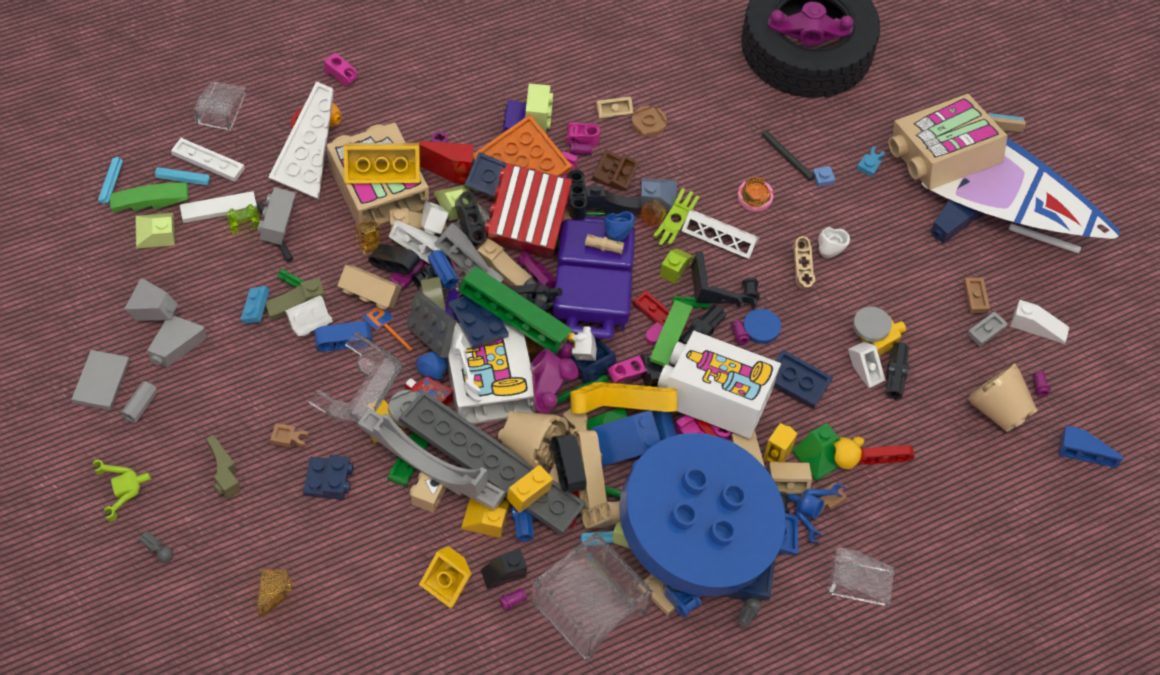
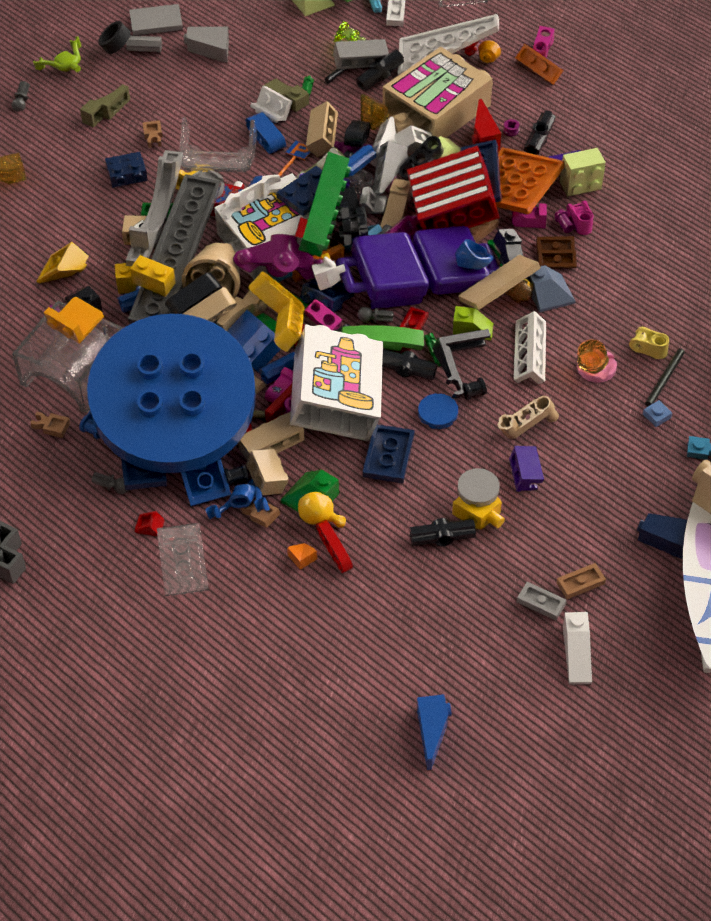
camera: 75 degrees right, 5 degrees down
(106, 429) = (114, 37): none -> black tyre
(150, 303) = (236, 13): light grey slope -> none
(215, 207) = (344, 14): white tile -> none
(255, 305) = (275, 72): dark azure plate -> none
(309, 209) = (380, 70): none -> black piece
(367, 85) = (539, 64): none -> orange tile
(381, 163) = (437, 79): yellow slope -> none
(431, 324) = (294, 163): dark grey plate -> none
(463, 121) = (540, 133): none -> black piece
(546, 338) = (301, 227): none -> red tile
(573, 570) = (75, 319): none -> light orange bracket
(577, 196) = (519, 223): black beam -> none
(604, 244) = (447, 254): tan pin -> none
(614, 107) = (633, 231): tan slope -> none
(628, 338) = (366, 314): none -> dark grey axle
(649, 121) = (634, 261): medium nougat tile -> none
(652, 220) = (499, 282): none -> tan tile
(659, 642) = (52, 425): none -> medium nougat plate
(677, 209) = (511, 309): lime piece -> none
(742, 336) = (415, 396): magenta pin -> none
(750, 147) = (651, 343): none -> light yellow piece
(780, 444) = (296, 451): yellow brick -> none
(806, 595) = (149, 523): none -> red slope
(833, 242) = (571, 435): white hair -> none
(851, 287) = (526, 468): none -> dark purple hinge
(867, 363) = (435, 502): white slope -> none
(884, 482) = (302, 555): none -> orange slope
(1005, 399) = (447, 625): tan cone -> none
(1042, 388) = (498, 667): magenta pin -> none

